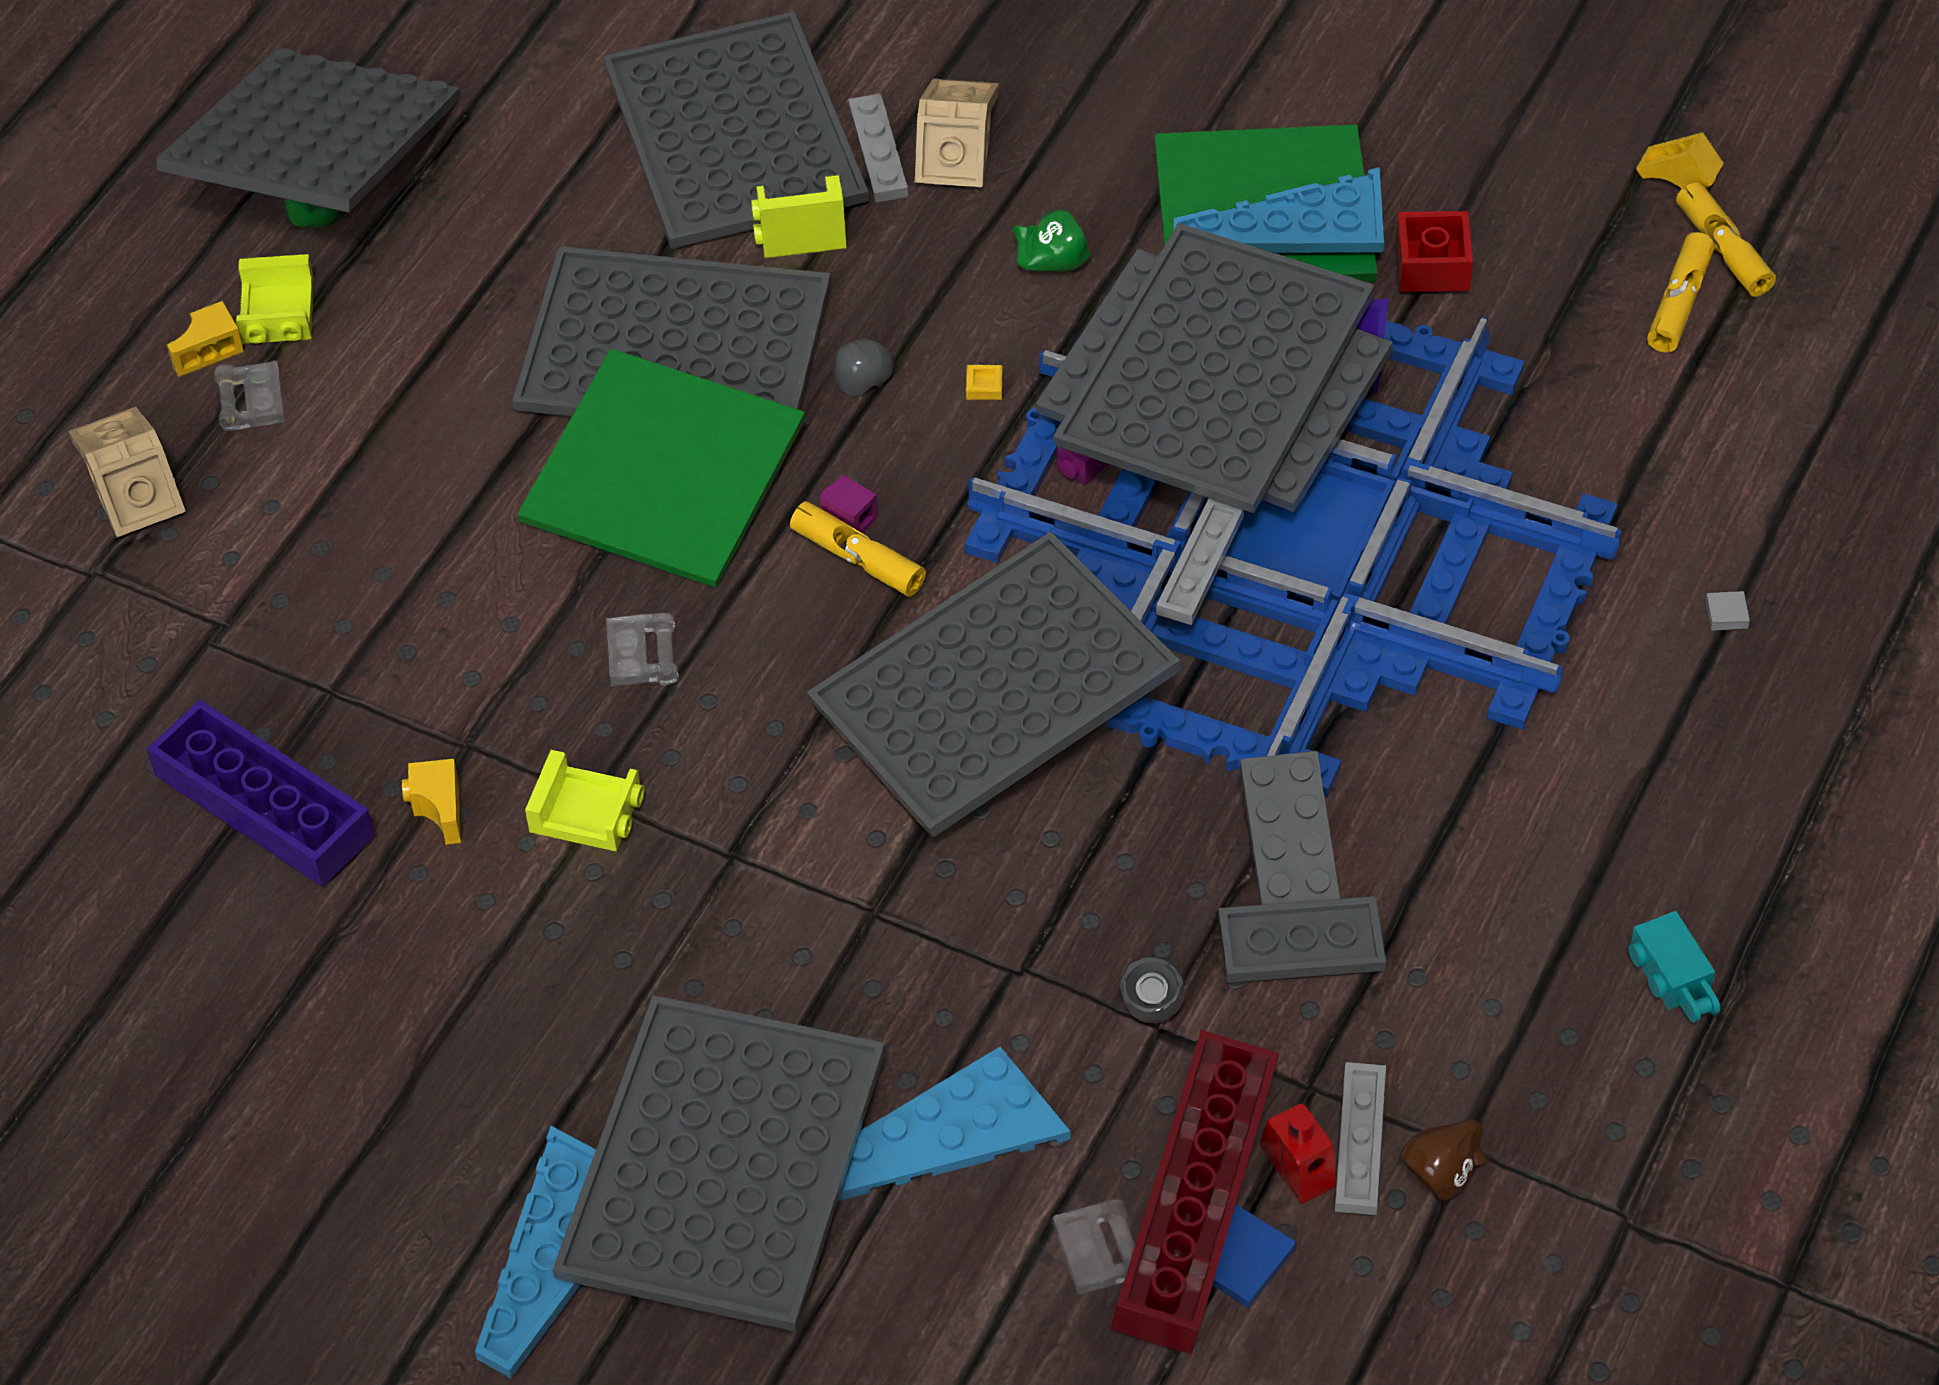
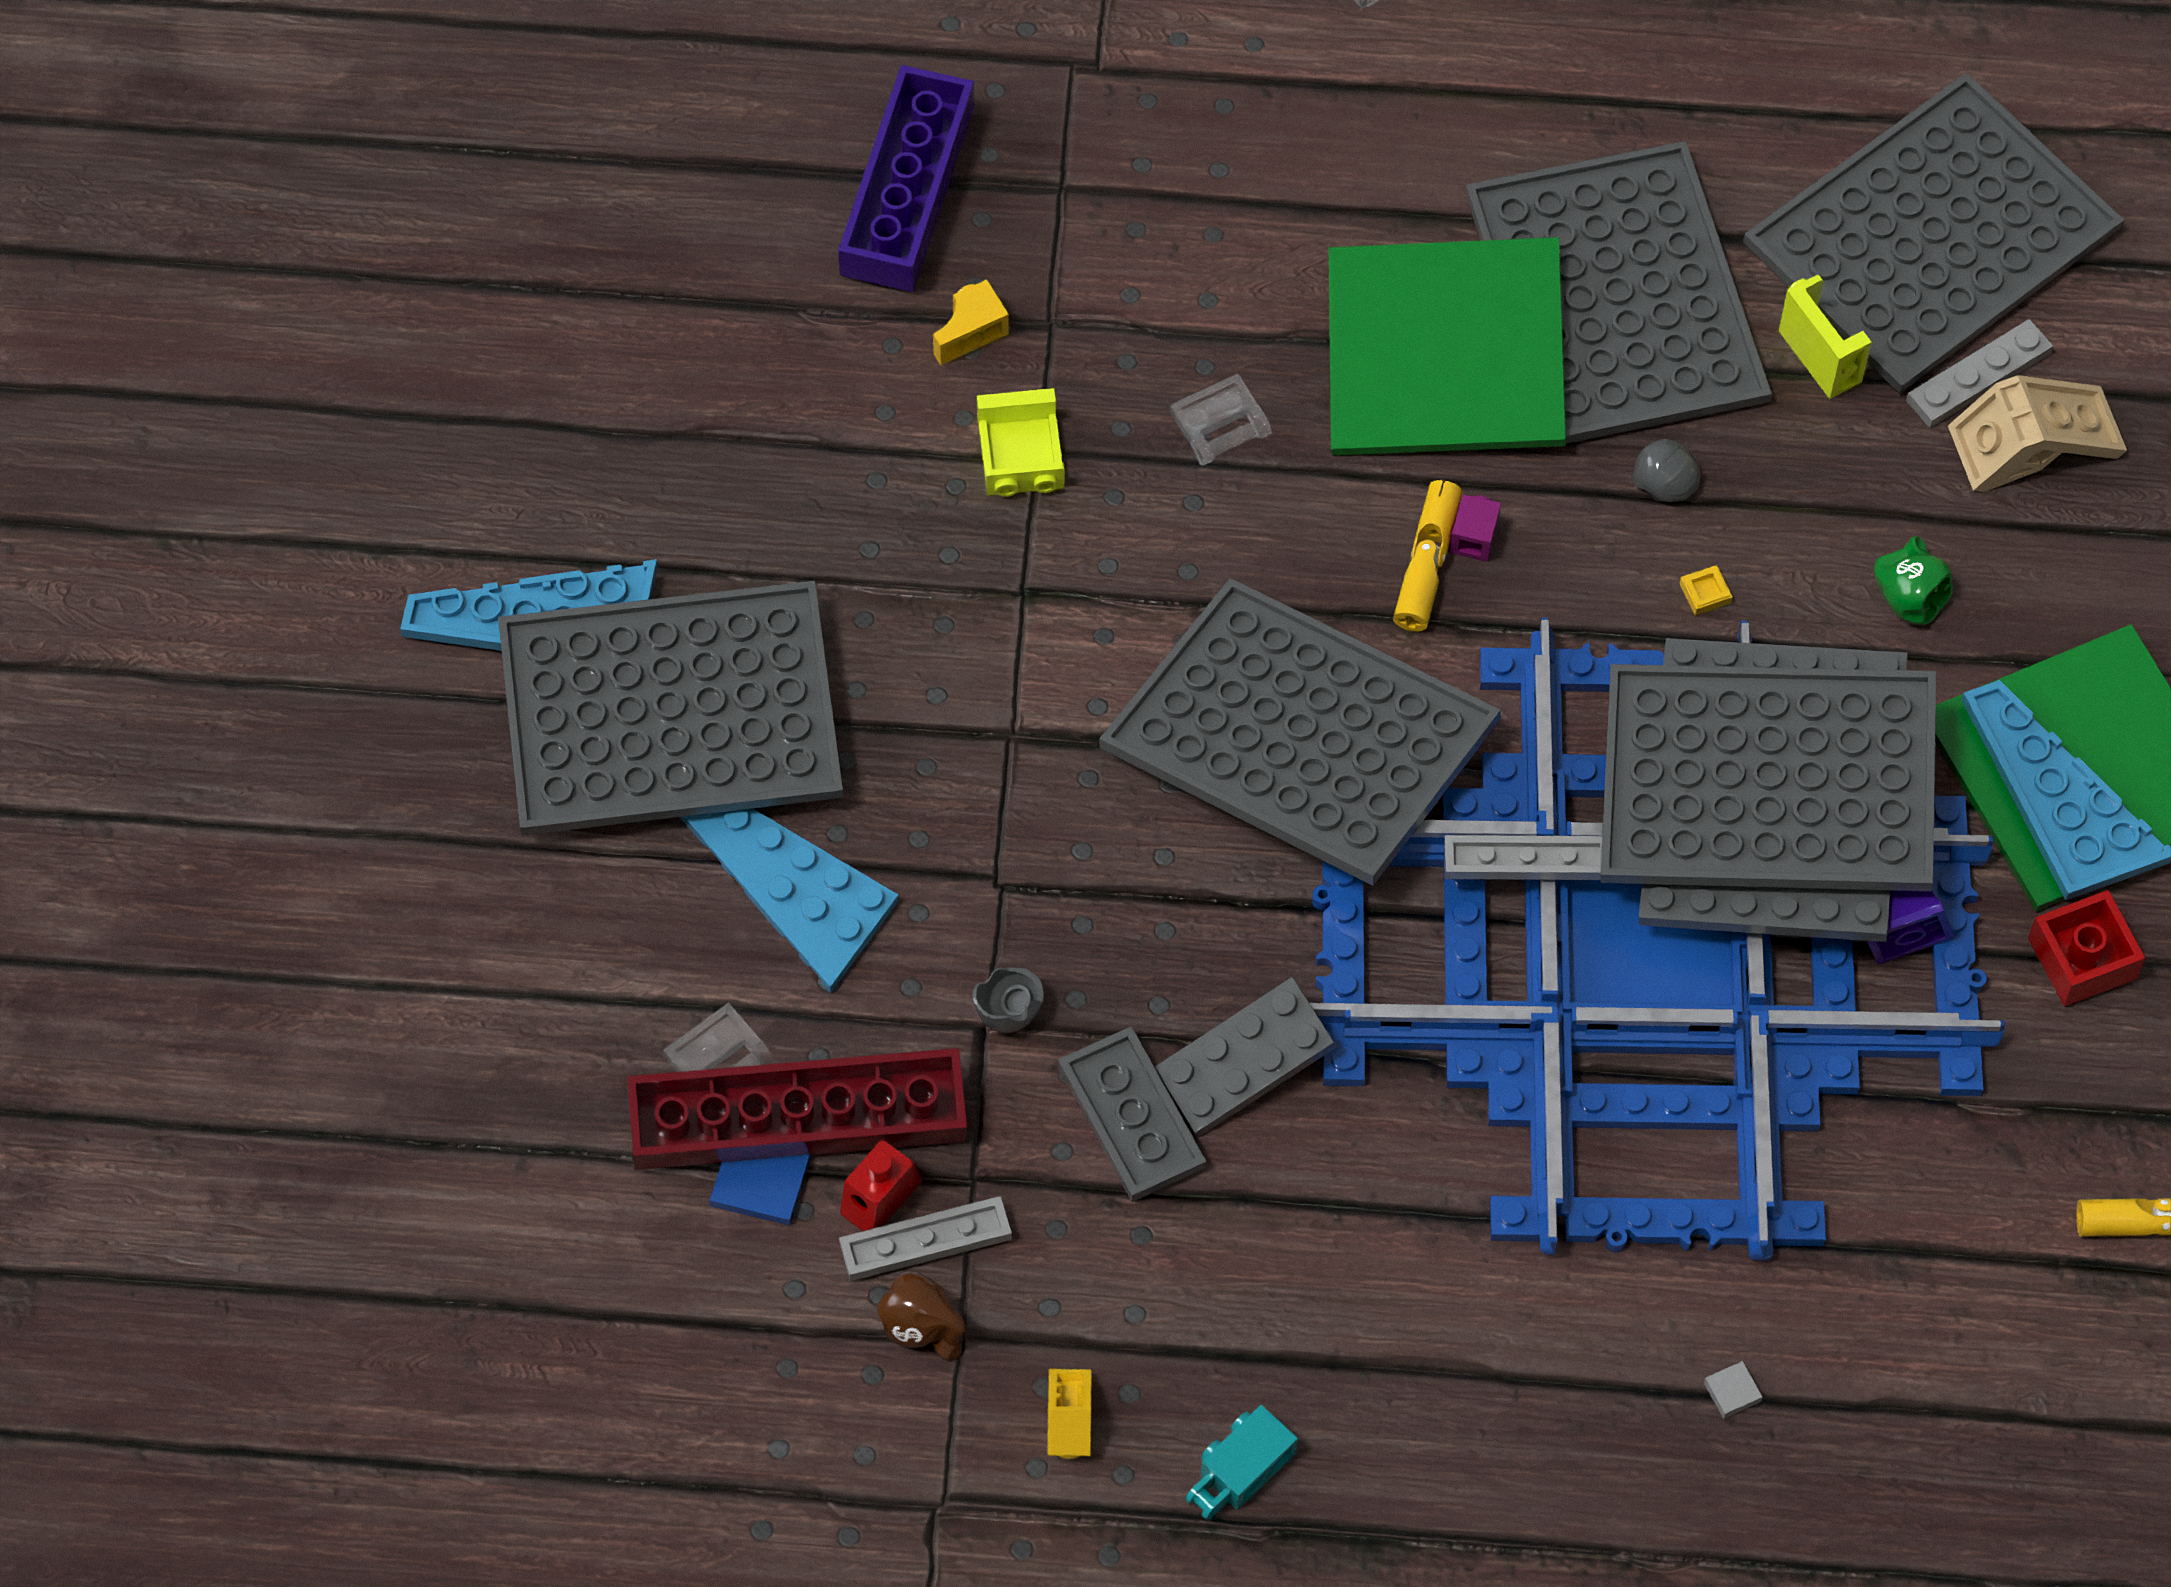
camera: 65 degrees right, 10 degrees up
(1581, 1075) = (1069, 1412): none -> yellow arch

